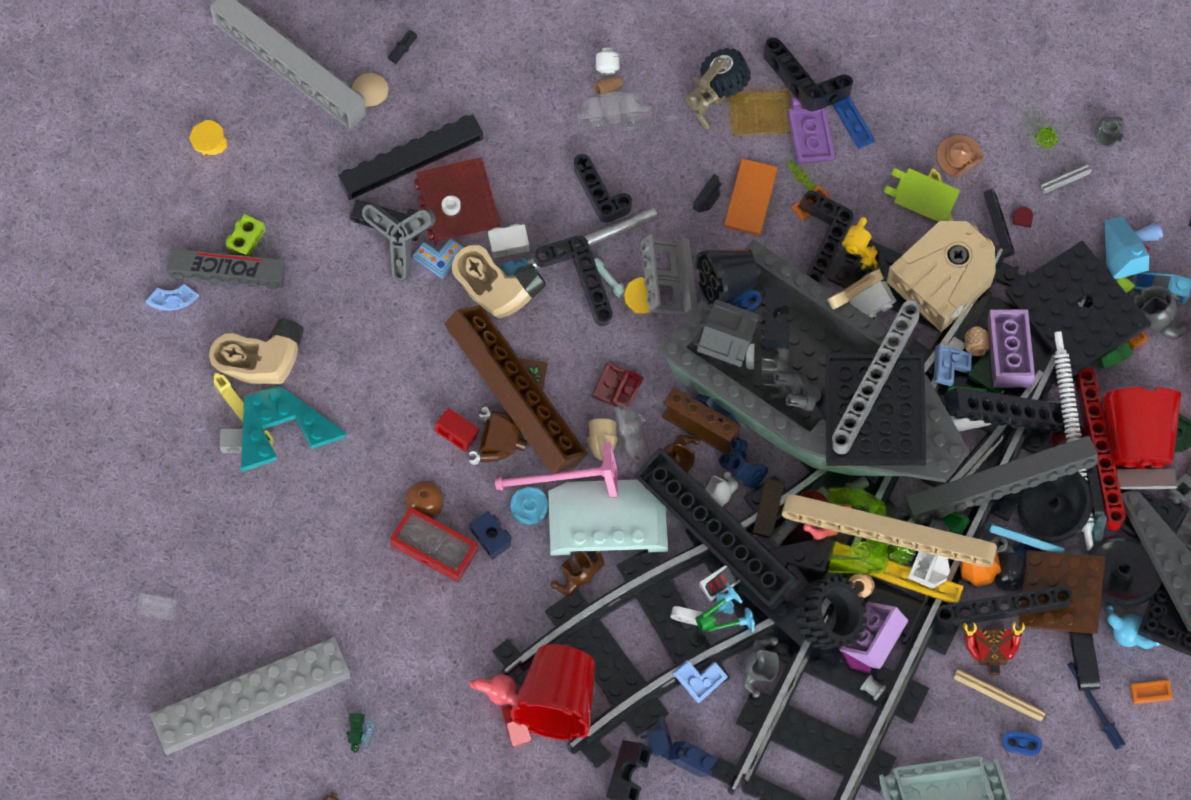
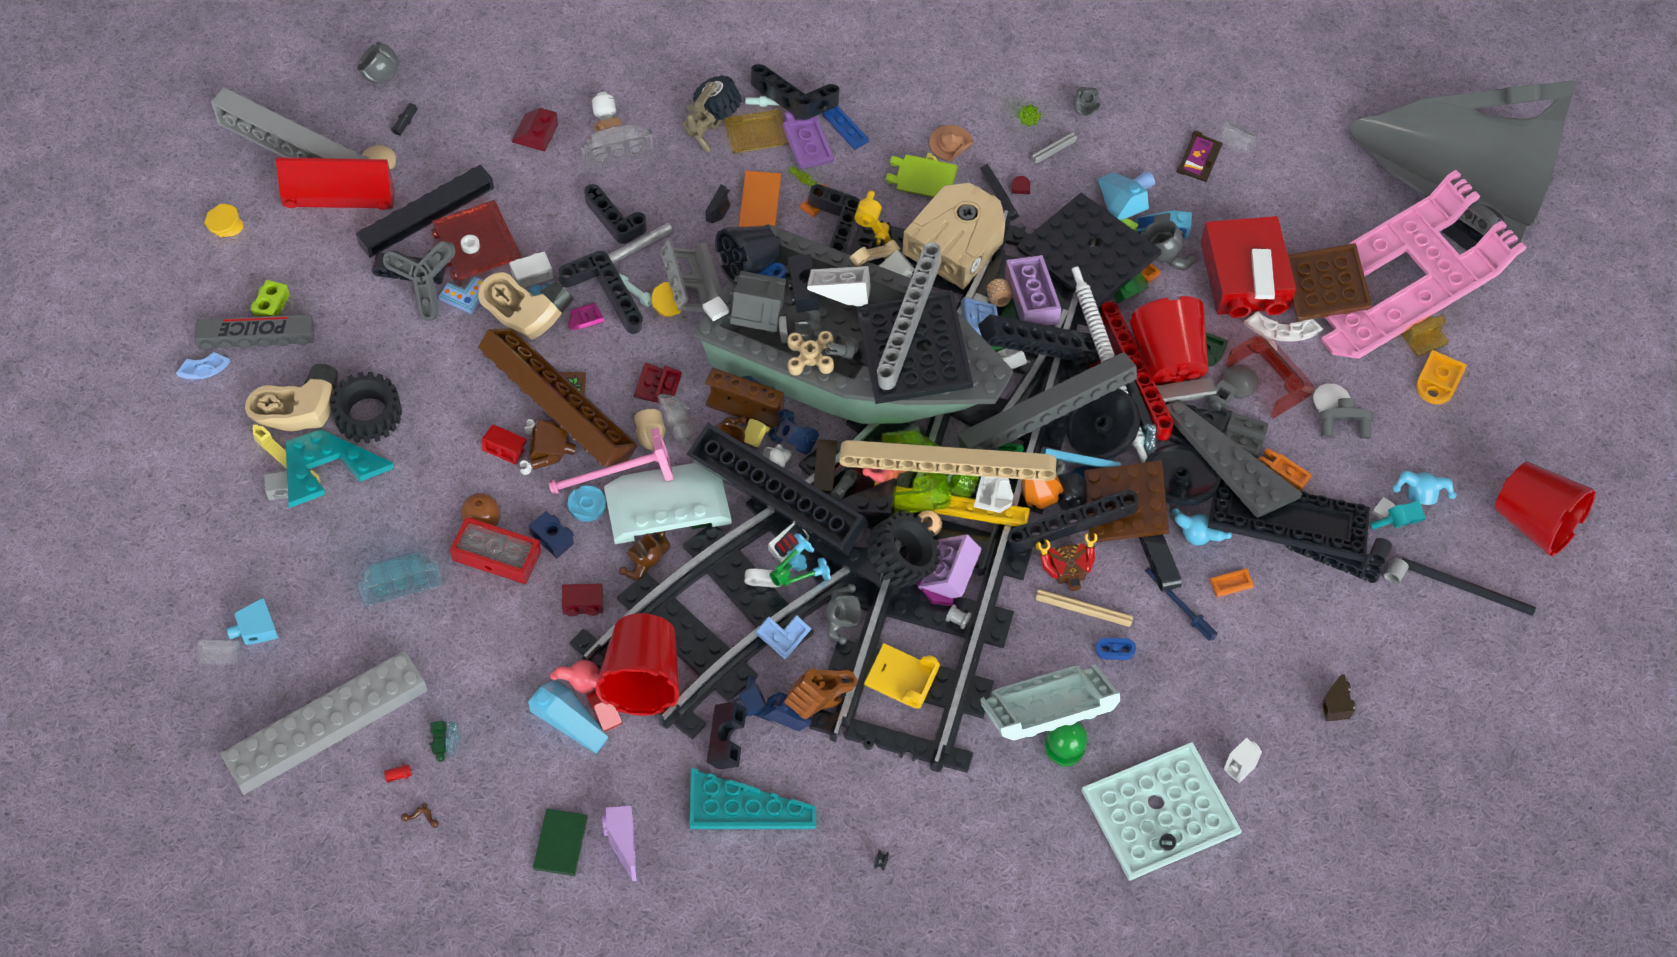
camera: 10 degrees left, 10 degrees down
(194, 583) = (253, 624): none -> medium azure torso
(313, 758) = (398, 773): none -> red pin
(321, 349) = (364, 388): none -> black tyre
(324, 117) = (335, 183): none -> red slope
(337, 558) = (398, 578): none -> clear light blue windscreen
(478, 721) = (566, 713): none -> medium azure wedge
(511, 608) = (582, 599): none -> dark red brick
(534, 78) = (536, 129): none -> dark red slope
(555, 301) = (585, 317): none -> dark pink slope
(685, 330) = (715, 308): none -> white tile
(706, 457) = (755, 432): none -> light yellow tile
(723, 746) = (818, 691): none -> dark orange piece
(772, 79) = (763, 101): none -> light aqua bar
(772, 405) = (810, 353): none -> tan gear
(810, 741) = (903, 677): none -> yellow door
(814, 329) = (844, 285): none -> white slope

